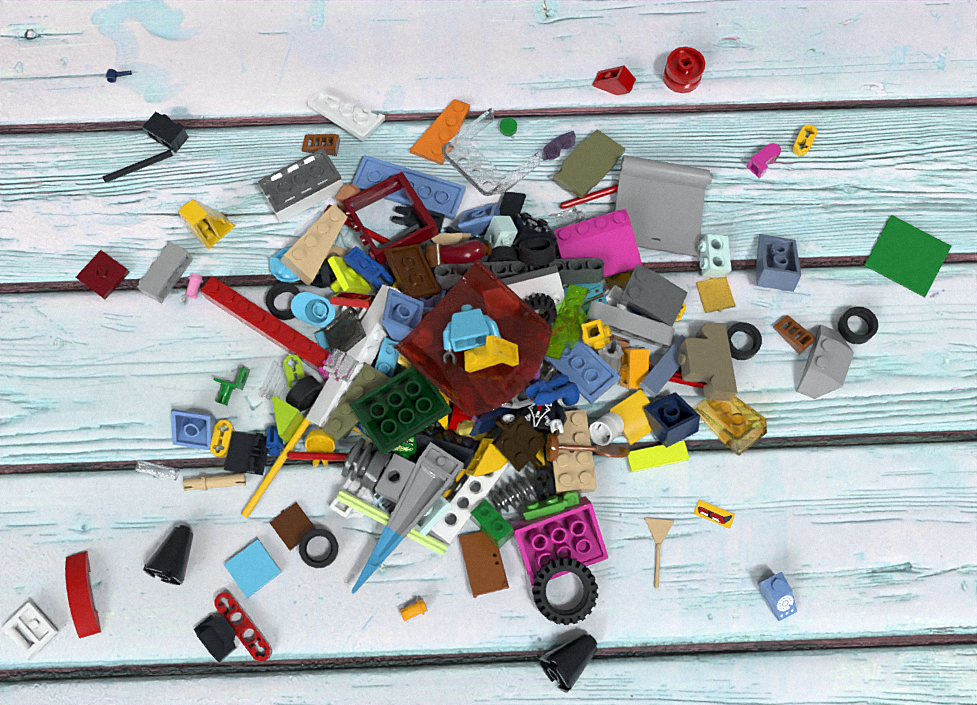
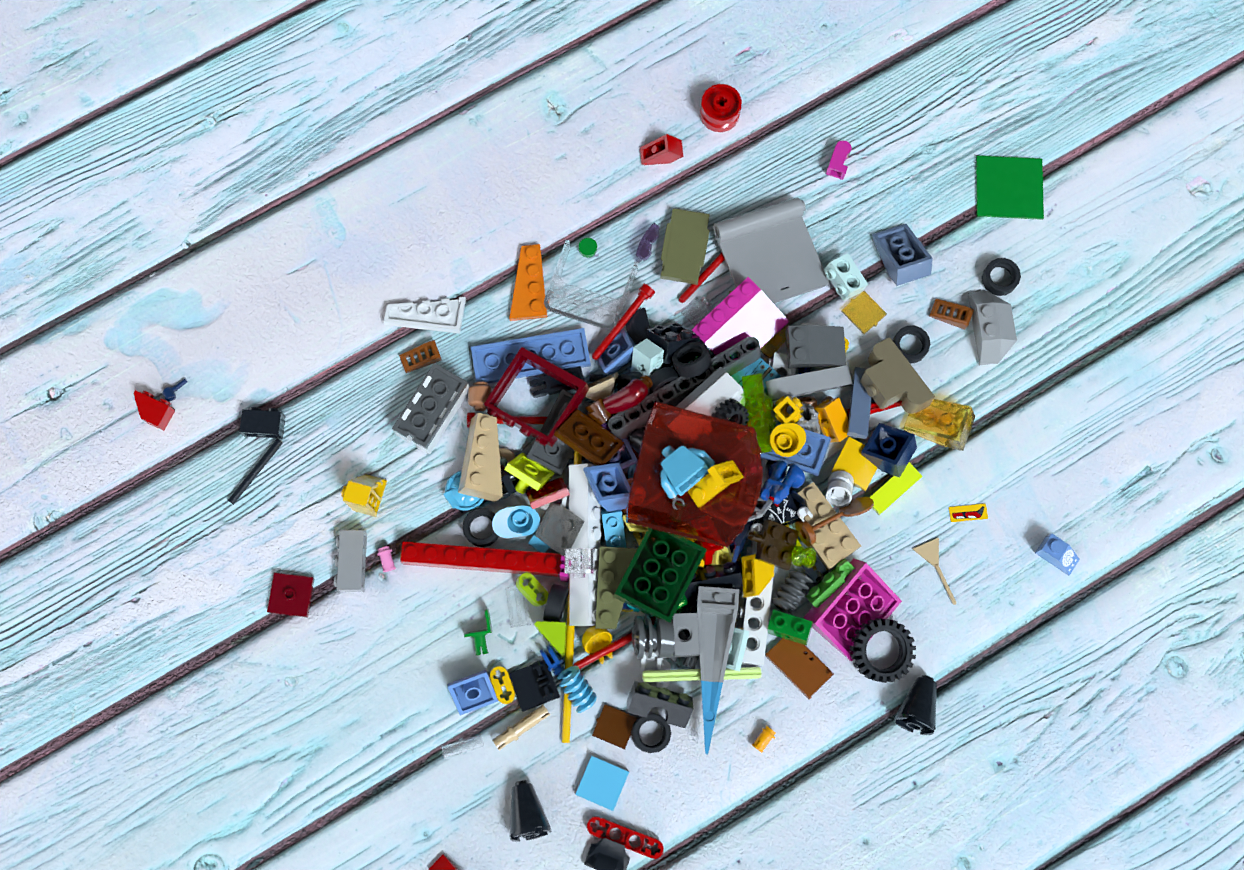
camera: 30 degrees left, 5 degrees up
(89, 80) = (153, 411): none -> red slope
(279, 474) = (578, 687): none -> medium azure piece
(352, 533) = (645, 697): none -> black arch
(367, 267) = (544, 456): blue hinge -> none
(532, 183) = (645, 293): none -> red piece
(537, 466) = (804, 556): none -> clear neon green wheel
(579, 356) = (787, 439): none -> yellow piece
(806, 141) = (860, 122): yellow beam -> none

